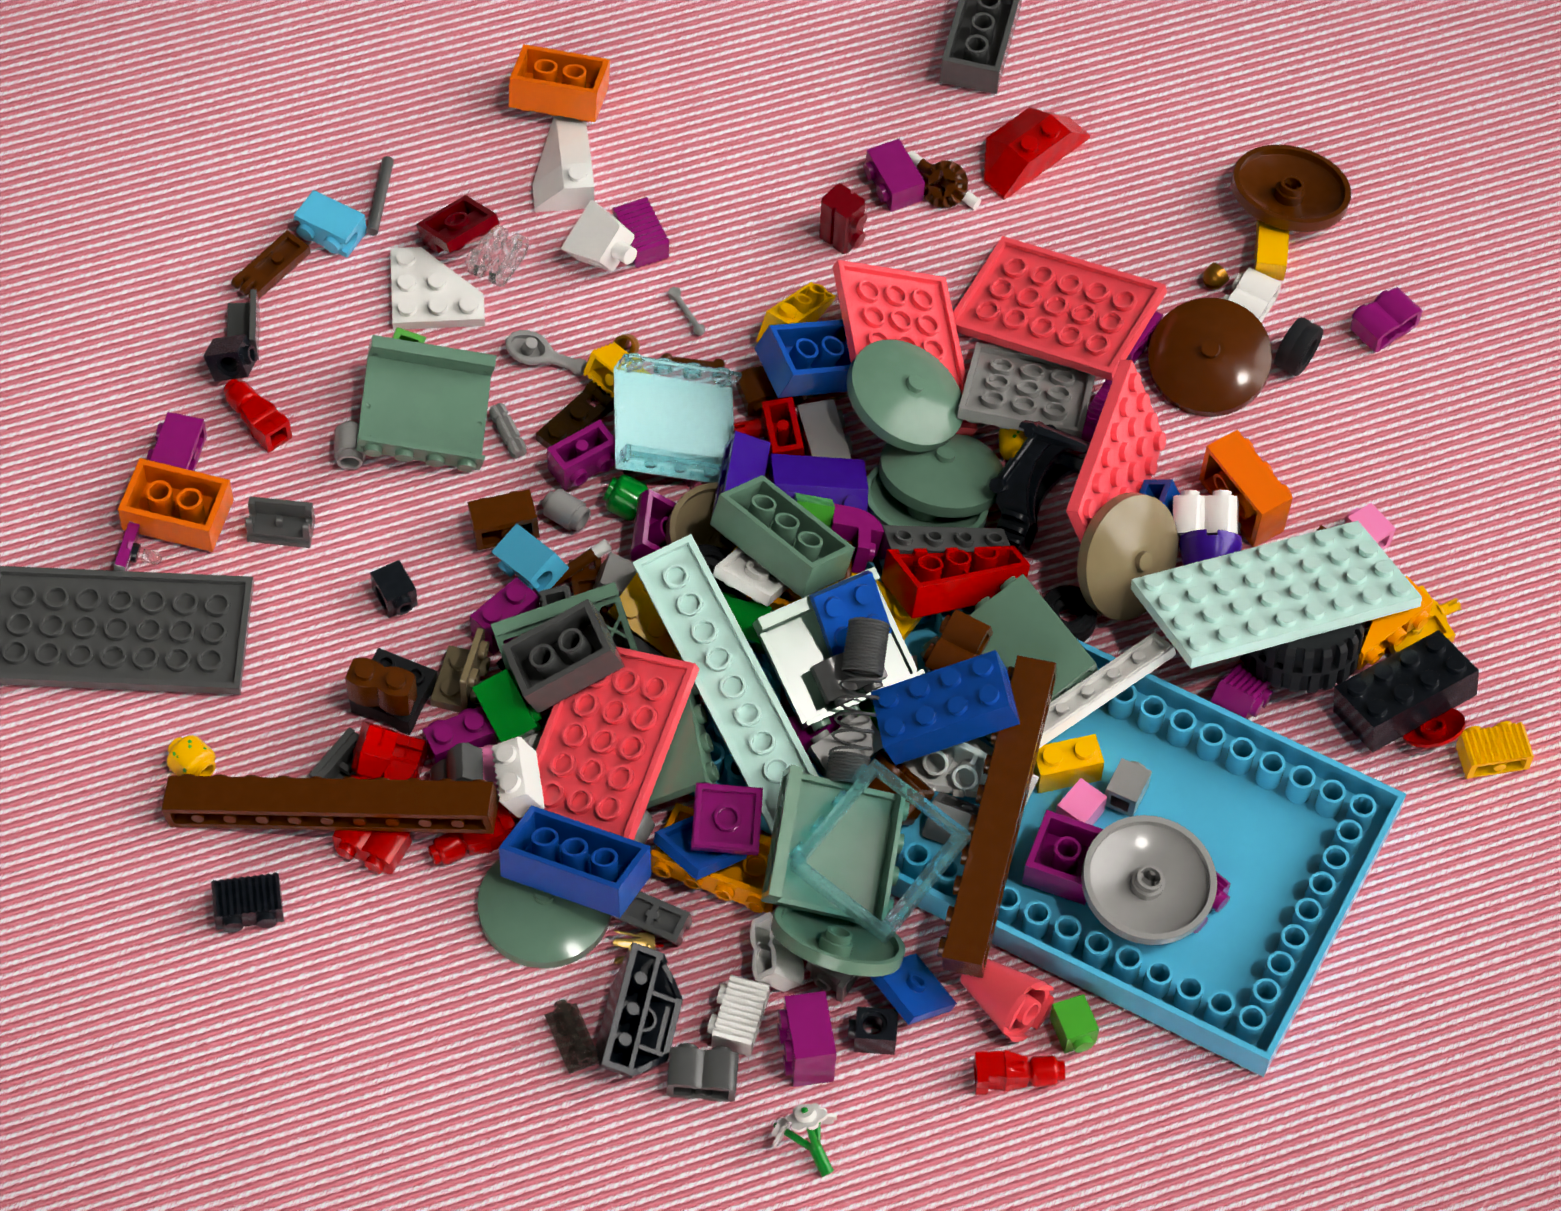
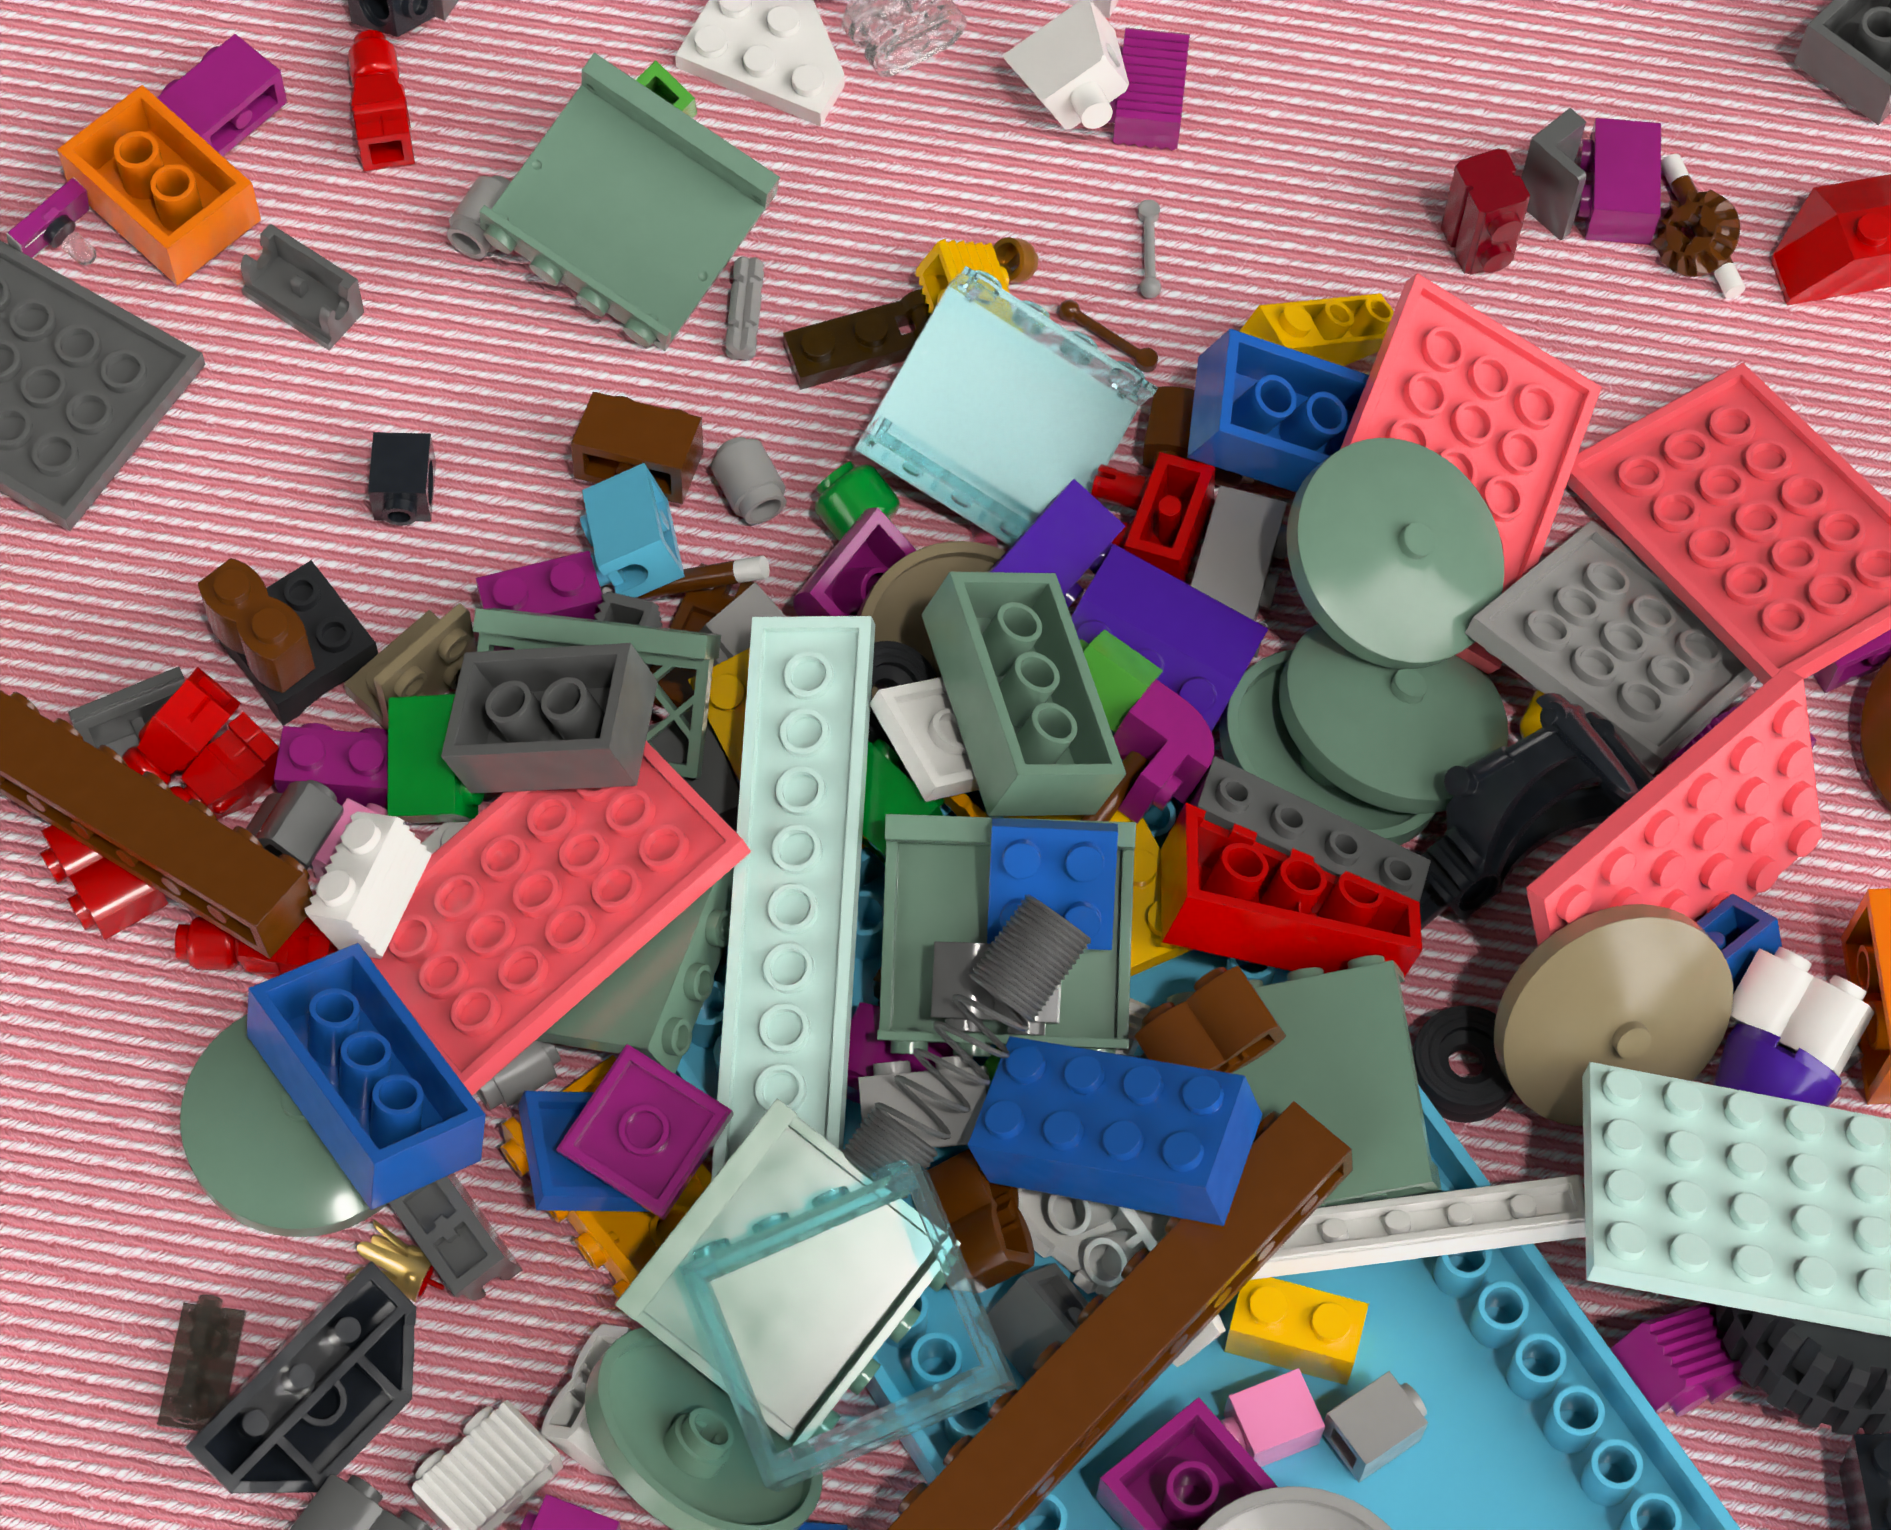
camera: 30 degrees right, 5 degrees up
(534, 349) = (866, 198): light grey piece -> none
(582, 455) = (823, 401): magenta brick -> none
(867, 185) = (1553, 175): none -> dark grey panel

